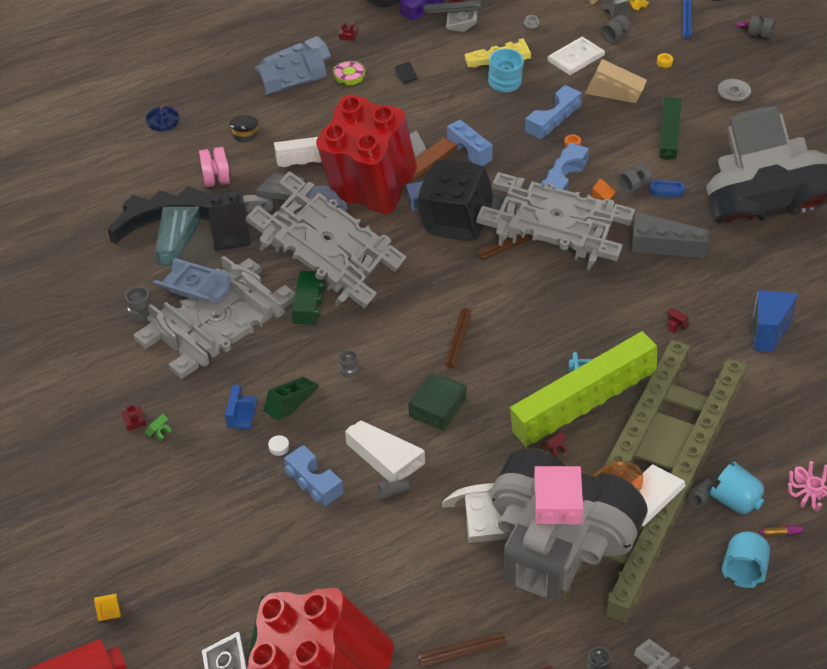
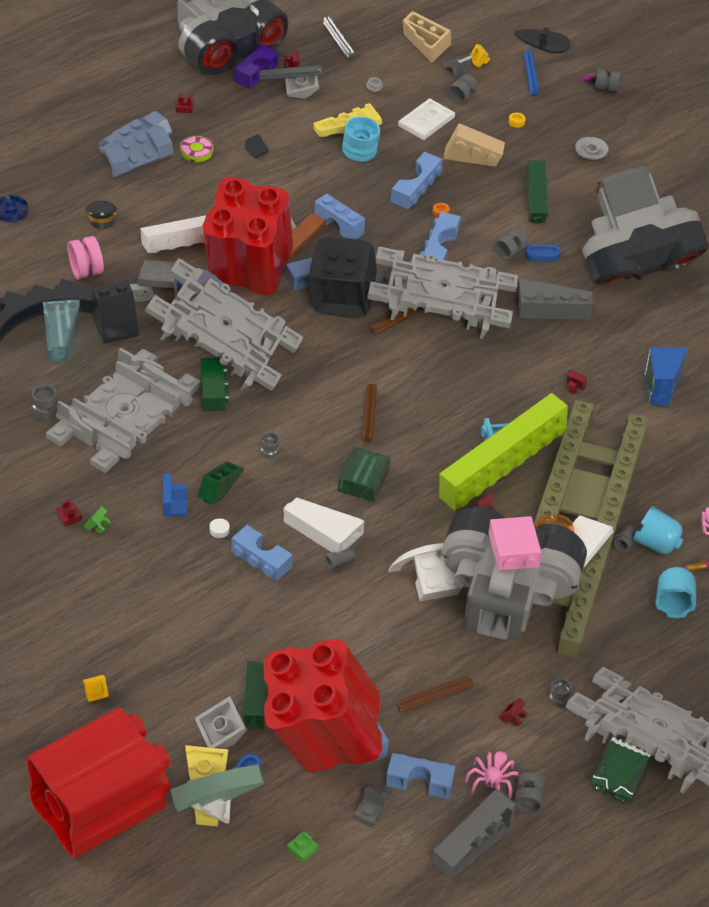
camera: 15 degrees left, 0 degrees up
(196, 281) = (97, 375): sand blue piece -> none
(602, 190) = (481, 258): orange slope -> none

